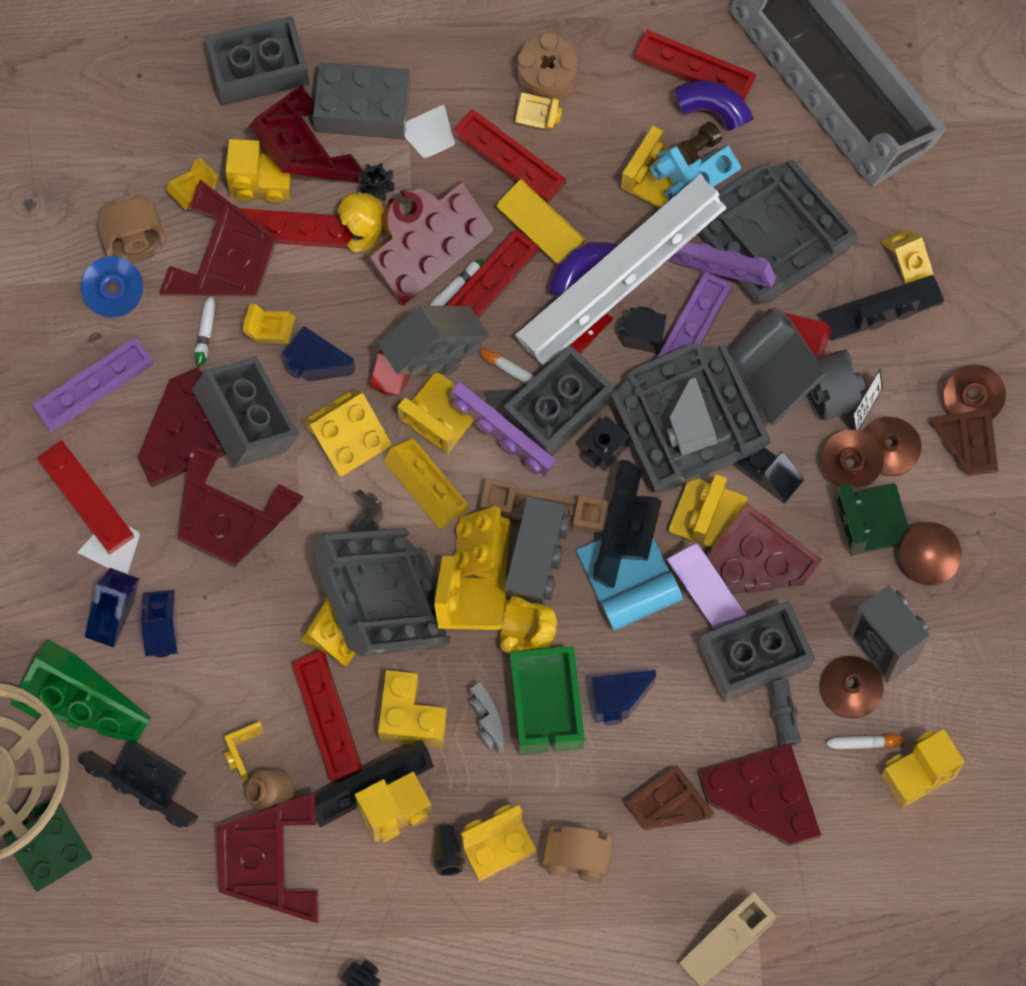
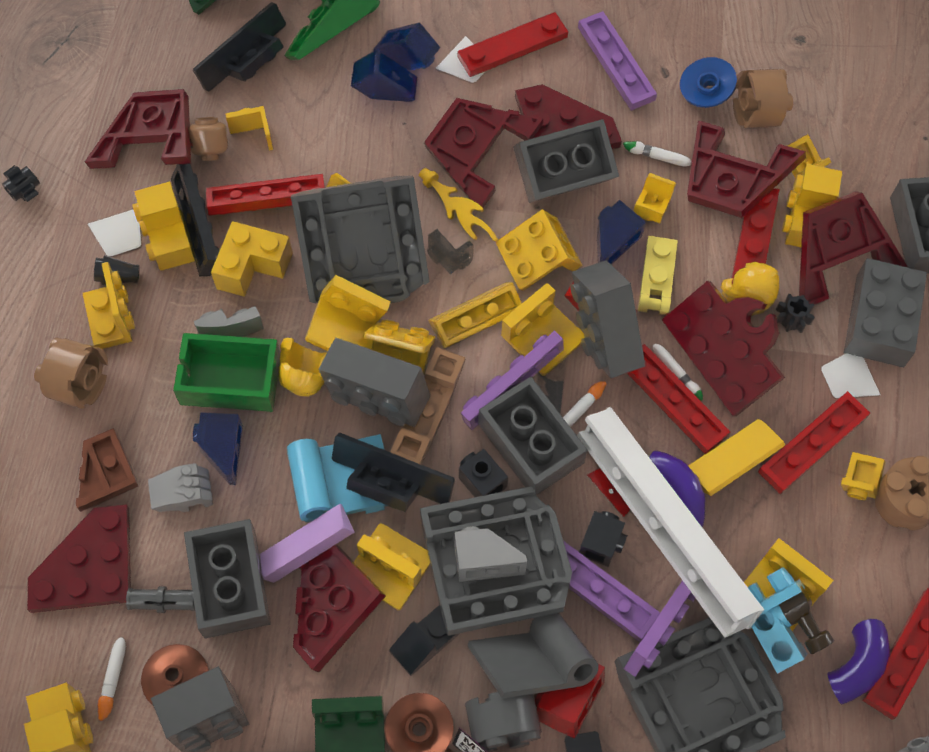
camera: 100 degrees right, 5 degrees down
(304, 515) = (461, 205): none -> yellow piece
(352, 315) = (658, 274): none -> light yellow plate
(394, 868) = (117, 233): none -> white sticker
(674, 721) = (180, 488): none -> light grey hand

